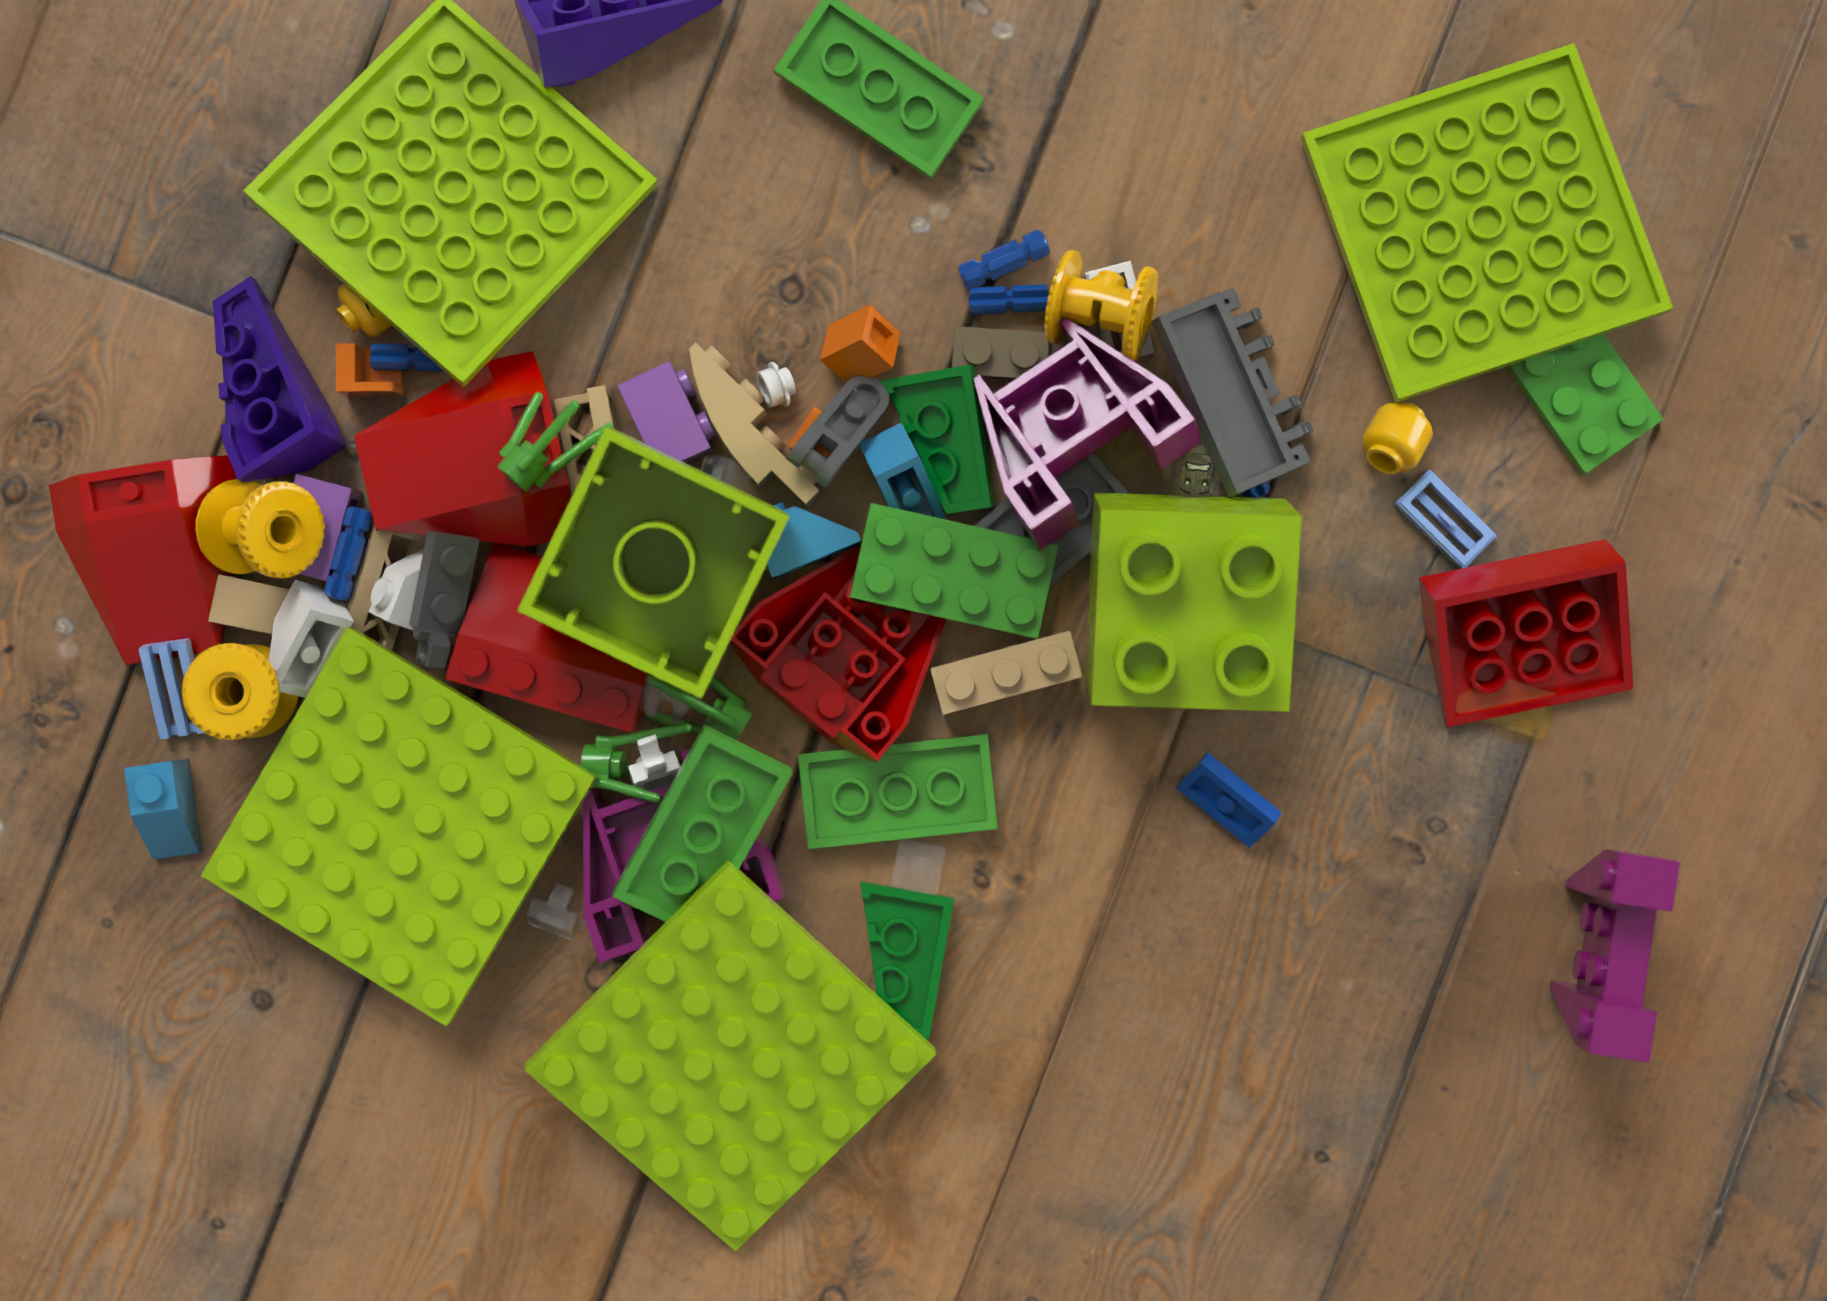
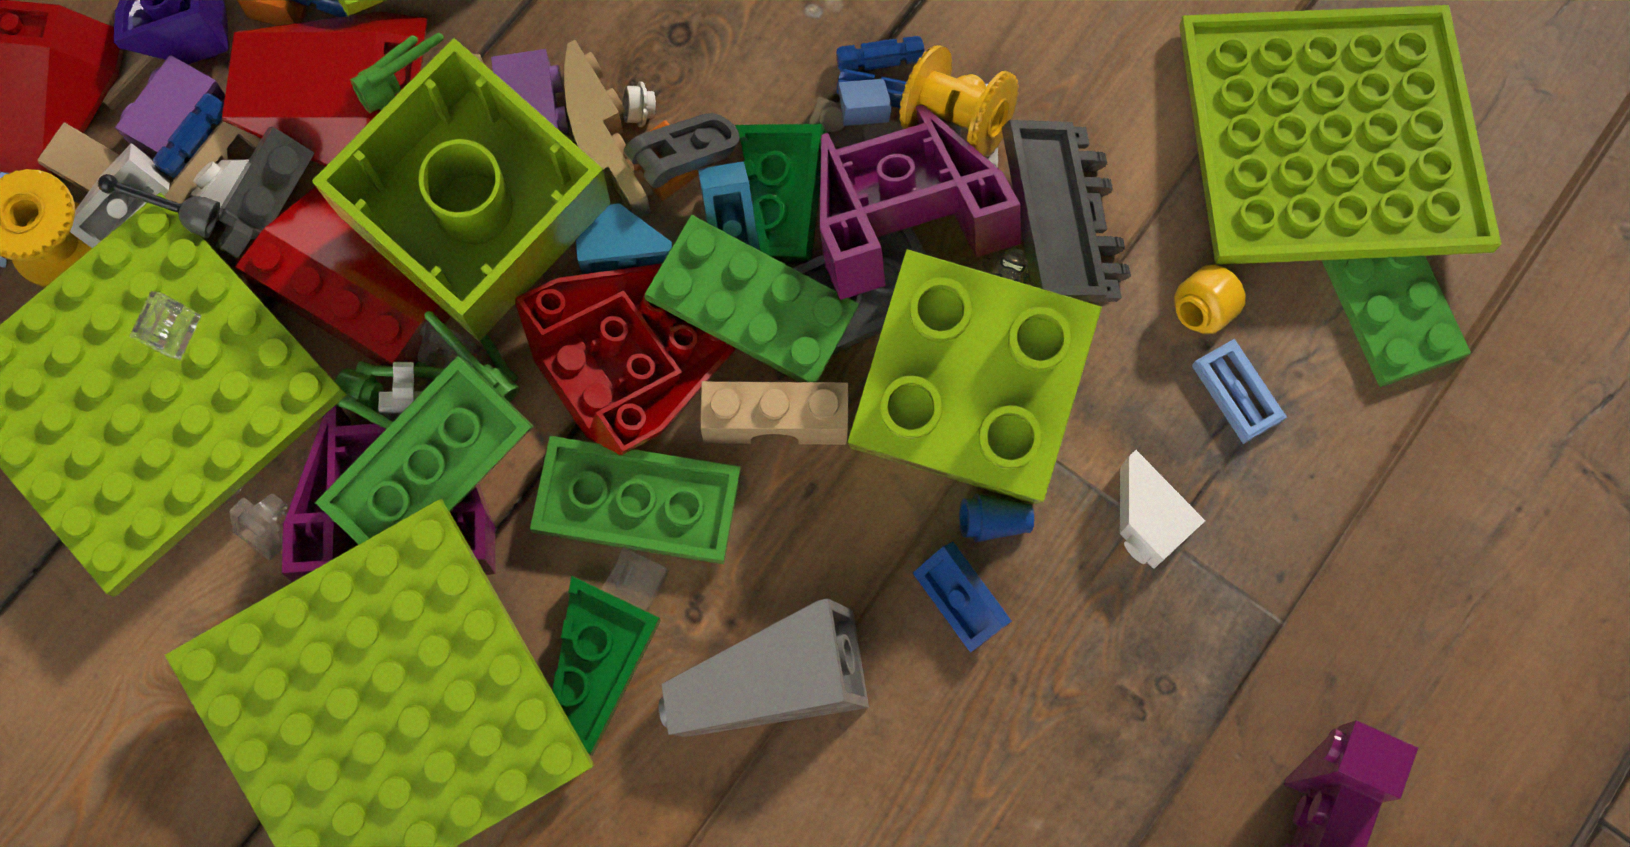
camera: 10 degrees right, 15 degrees down
(260, 528) = (116, 86): yellow hose -> none
(391, 641) = (196, 213): none -> hinge
(411, 769) = (165, 325): none -> clear tile
(860, 344) = (727, 88): orange panel -> none
(1004, 324) = (864, 102): none -> medium blue slope
(1087, 923) = (778, 675): none -> light grey slope
(1234, 724) = (994, 518): none -> blue cone
(1389, 671) = (1152, 512): none -> white slope
(1530, 722) = (1261, 581): tile -> none
(1534, 620) = (1300, 516): red slope -> none

